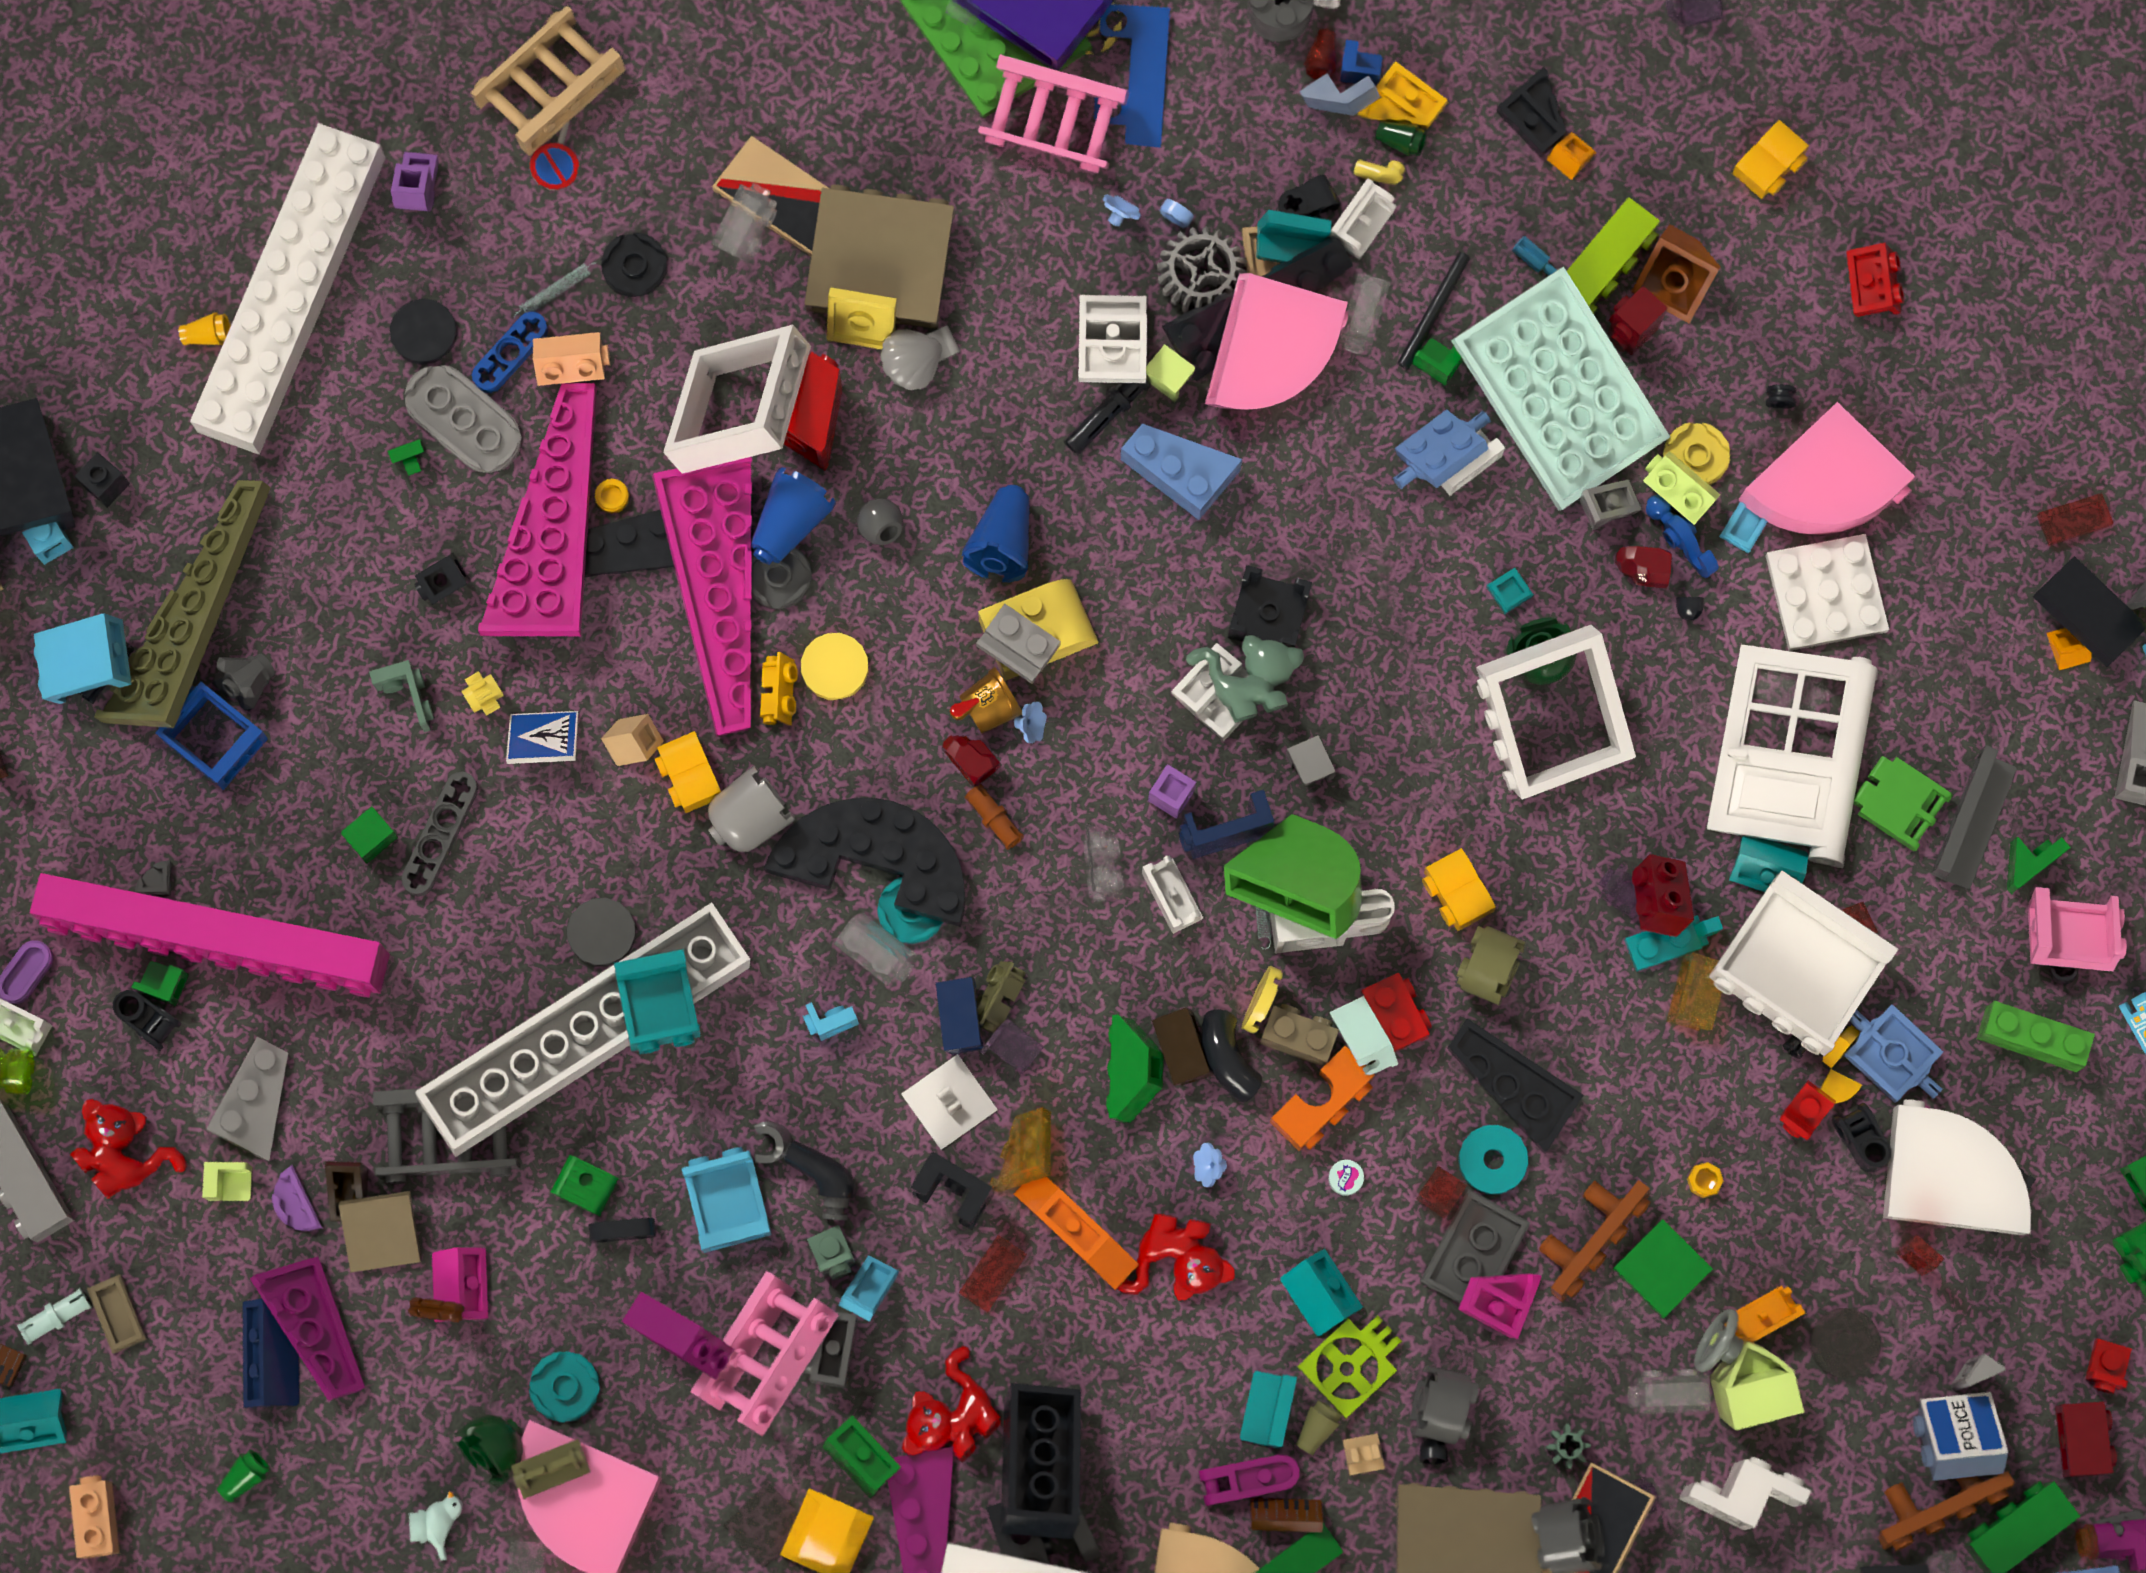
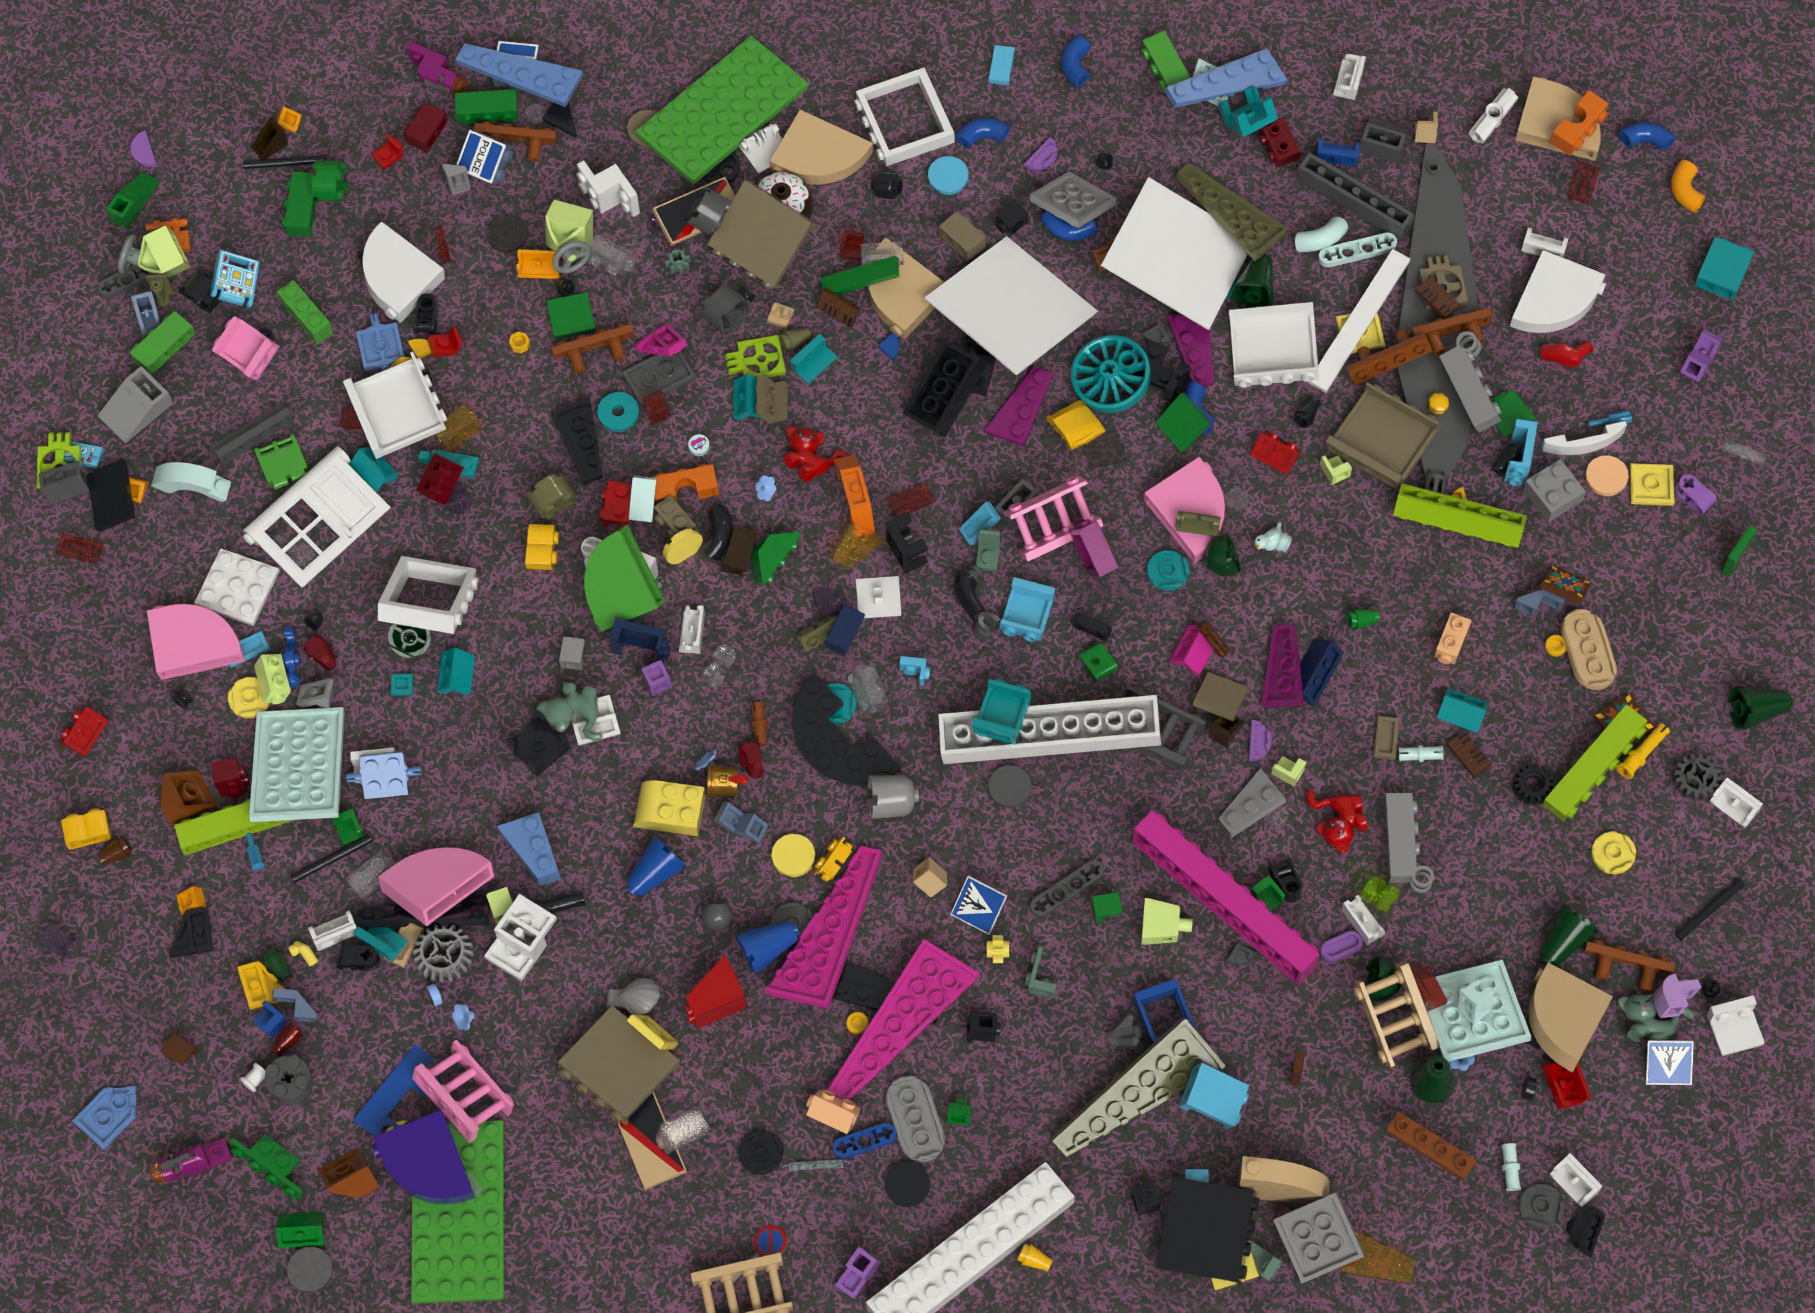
camera: 145 degrees left, 10 degrees down
(282, 858) = (1162, 922): none -> yellowish green torso
(689, 772) = (909, 841): yellow brick -> none
(789, 357) = (726, 993): white window -> none
(861, 1456) = (1034, 447): green panel -> none
(931, 668) = (743, 824): none -> sand blue slope
(934, 1424) = (987, 443): red animal -> none
(1018, 643) = (687, 792): light grey plate -> none
(1172, 1501) = (890, 346): none -> blue tile
(1250, 1478) = (845, 334): magenta plate -> none
(1286, 1304) = (771, 399): none -> dark tan bracket
(1448, 646) = (455, 672): none -> teal panel
(1695, 1307) = (569, 288): none -> black hinge
(1712, 156) = (115, 851): none -> reddish brown cone
(1996, 691) = (187, 476): none -> light aqua arch
(2025, 865) = (245, 393): green slope -> none

